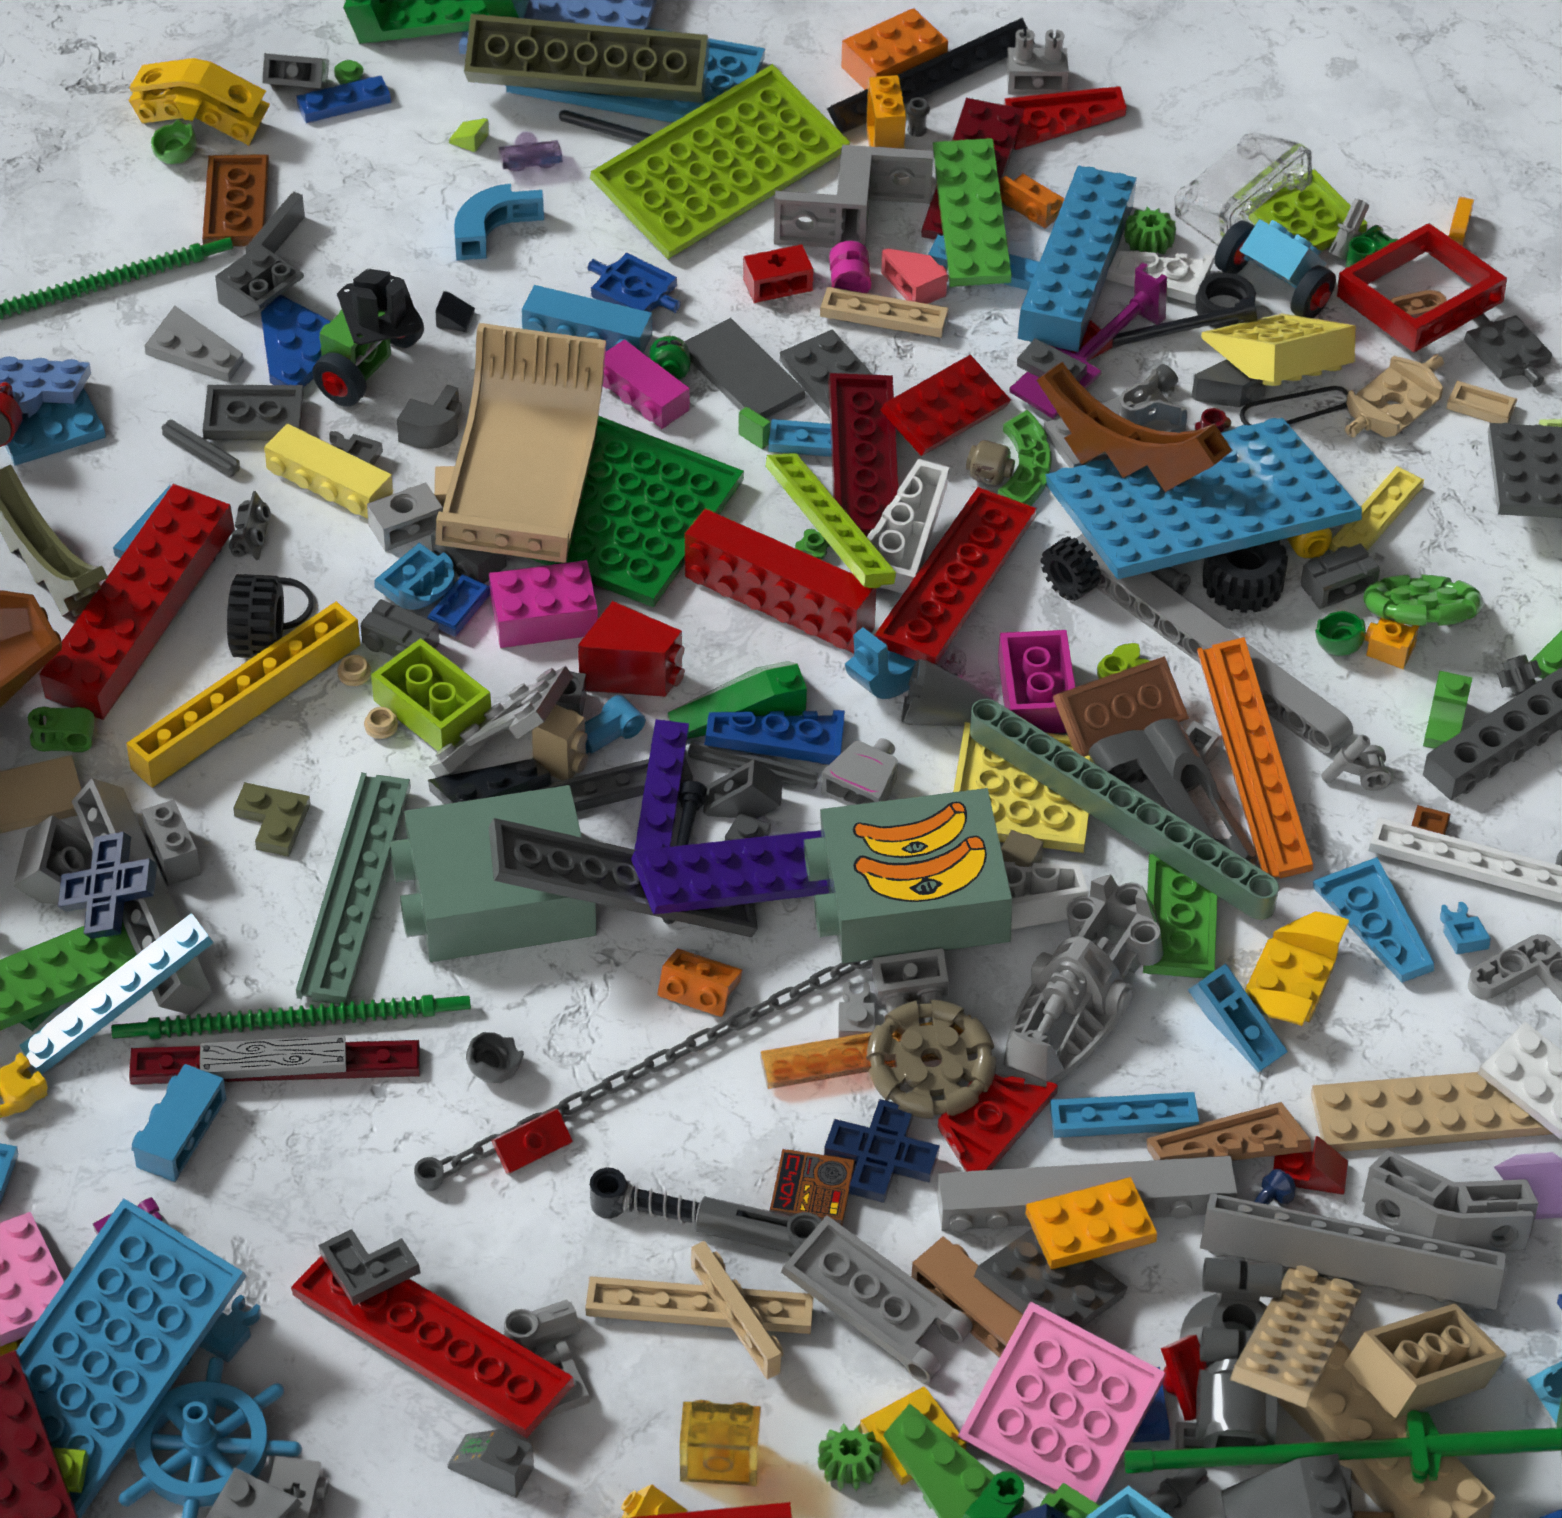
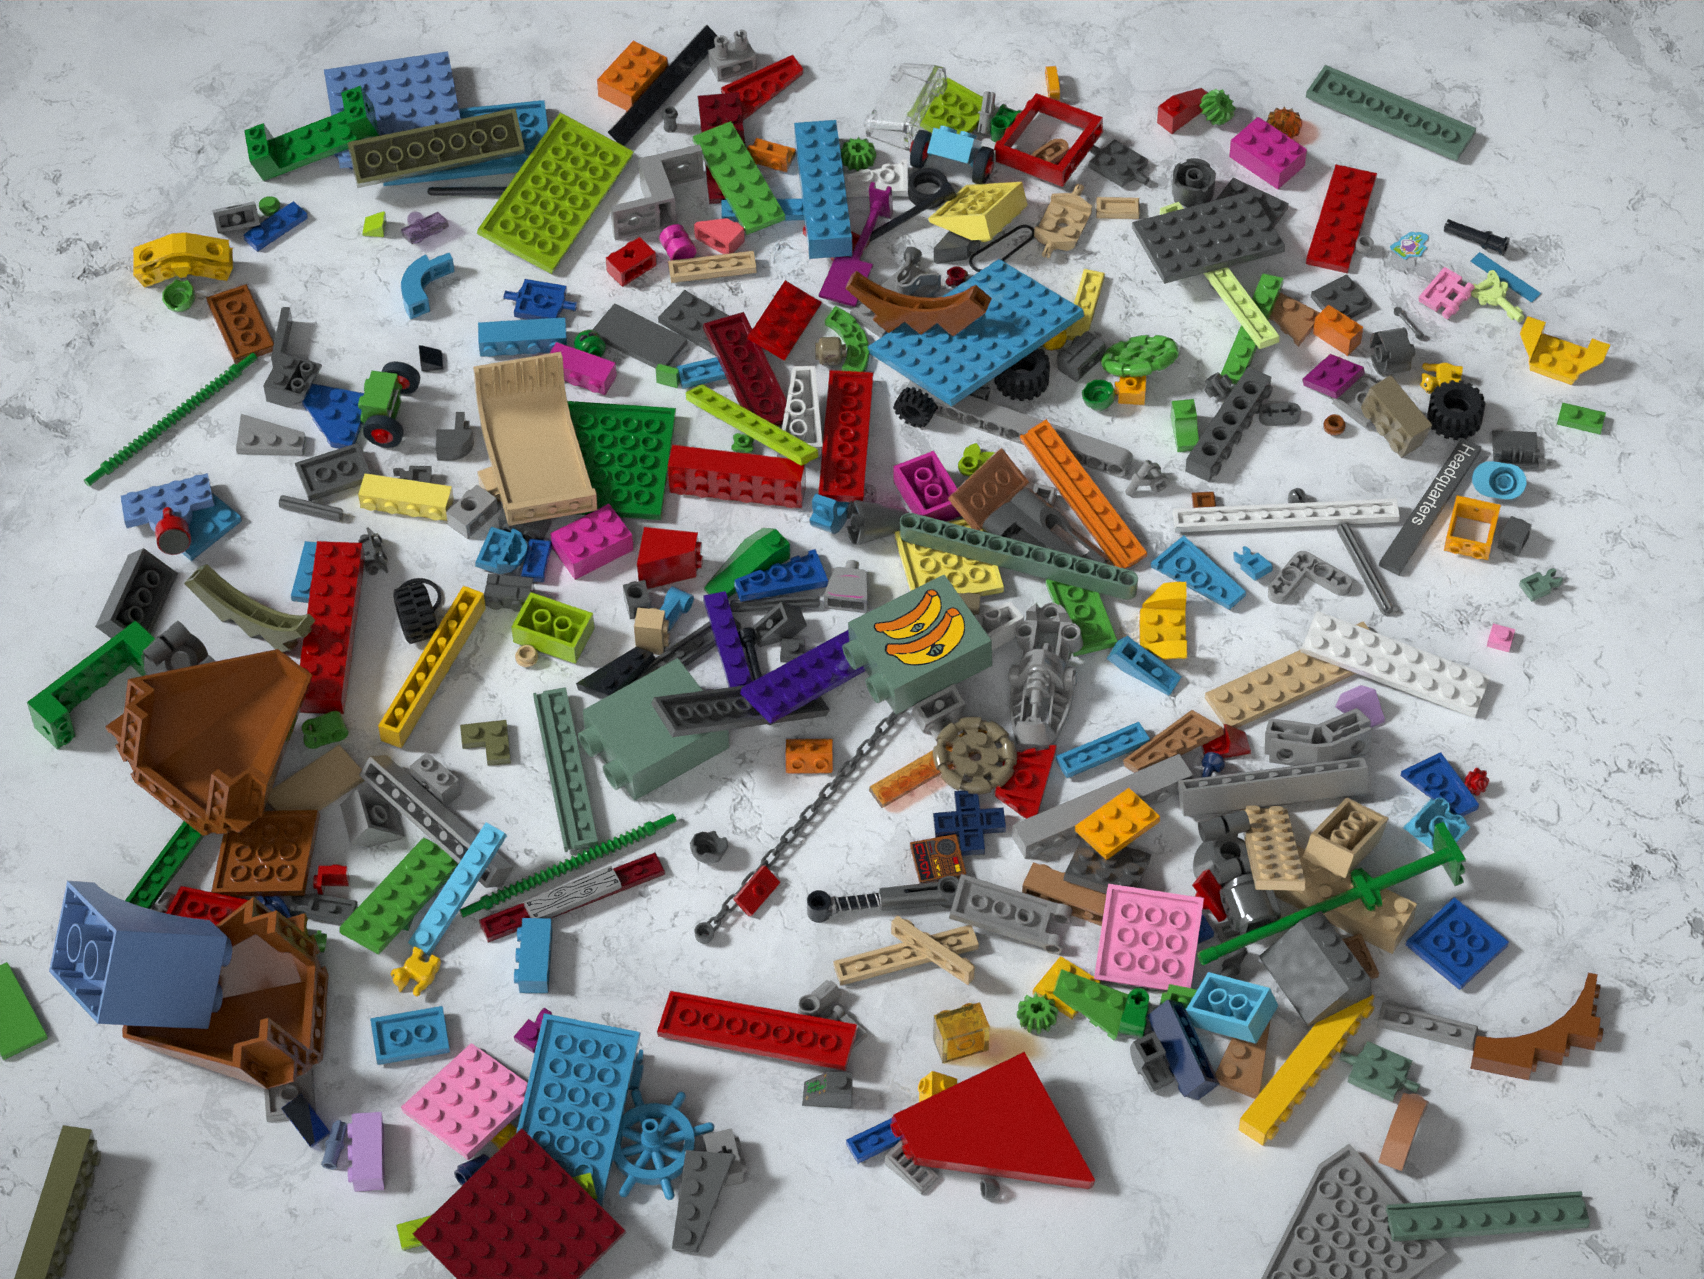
camera: 20 degrees left, 5 degrees up
(107, 885) = (417, 822): dark blue plate -> none
(354, 670) = (491, 627): tan plate -> none
(367, 1274) = (699, 1008): dark grey plate -> none
(375, 292) = (391, 374): black piece -> none
(520, 714) = (607, 628): light grey plate -> none
(855, 1013) = (913, 744): light grey plate -> none
(885, 113) = (653, 128): light orange window -> none
(1040, 358) = (837, 269): dark grey plate -> none

